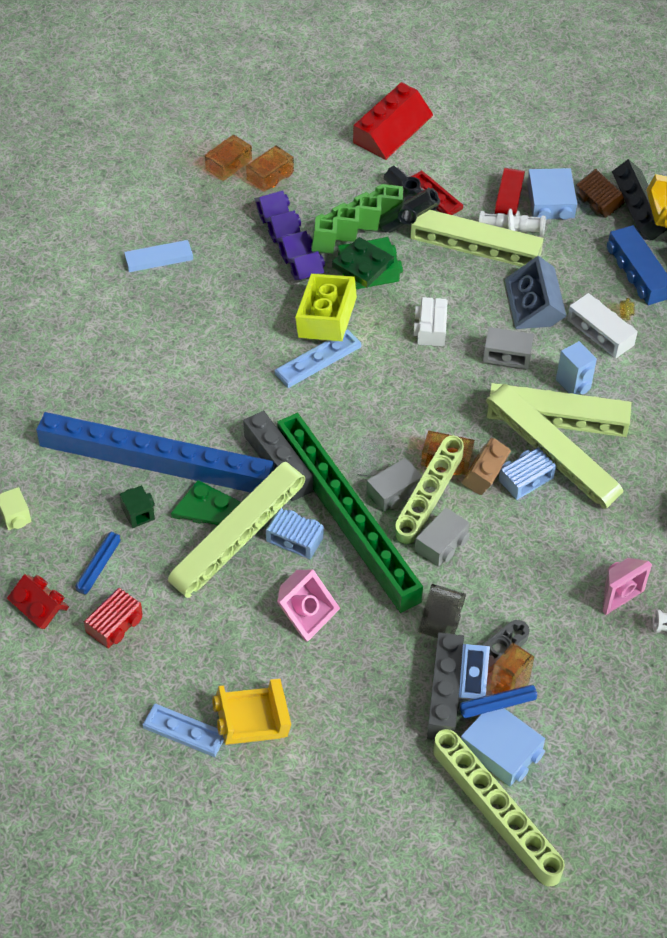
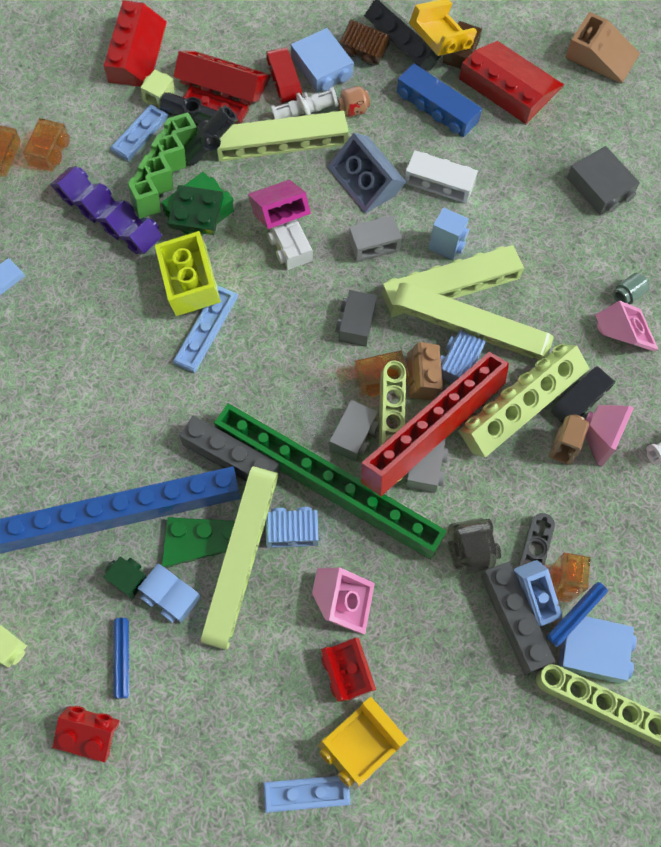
camera: 30 degrees left, 15 degrees up
(113, 618) = (172, 713): red brick -> none
(164, 533) = (168, 593): none -> light blue brick
(274, 655) = (347, 670): none -> red bracket
(347, 191) = (139, 132): none -> light blue tile
(390, 157) = (155, 86): none -> yellowish green brick
(438, 285) = (279, 204): none -> dark pink brick
(452, 172) = (220, 76): none -> red slope
(453, 402) = (357, 317): none -> dark grey brick
(465, 500) = (433, 424): none -> red brick
(559, 236) = (353, 101): none -> nougat head
(581, 571) = (569, 439): none -> medium nougat brick
(616, 548) = (583, 394): none -> black beam
(624, 519) = (537, 386): none -> yellowish green brick
(627, 309) = (452, 150): clear yellow plate -> none

